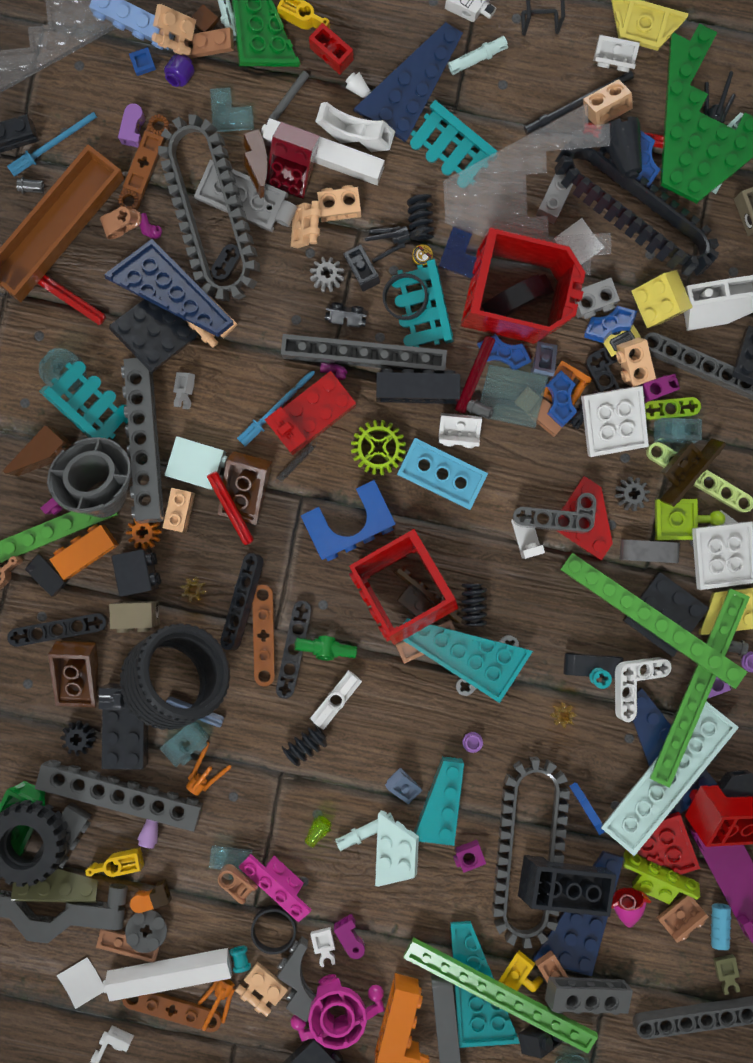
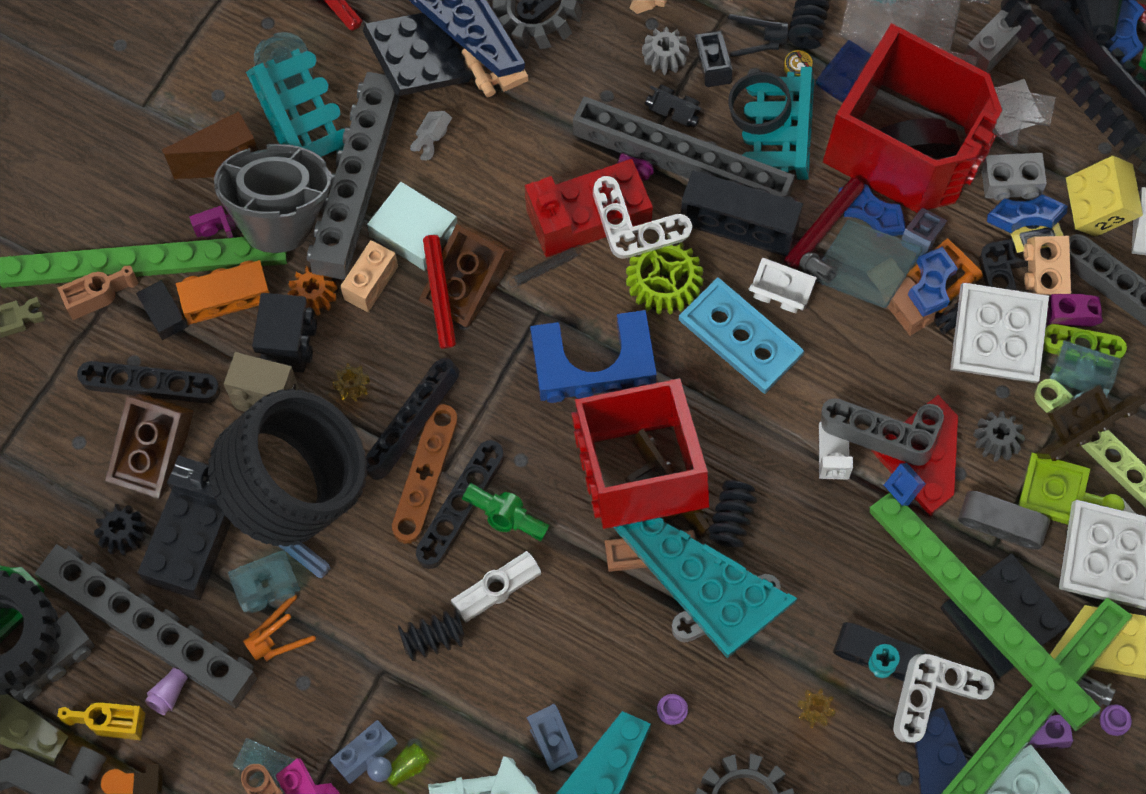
camera: 15 degrees right, 20 degrees down
(256, 427) = (510, 205): dark azure piece -> none
(288, 833) = (367, 754): none -> sand blue plate
(343, 428) = (625, 228): none -> white beam
(580, 549) = (904, 484): none -> blue plate

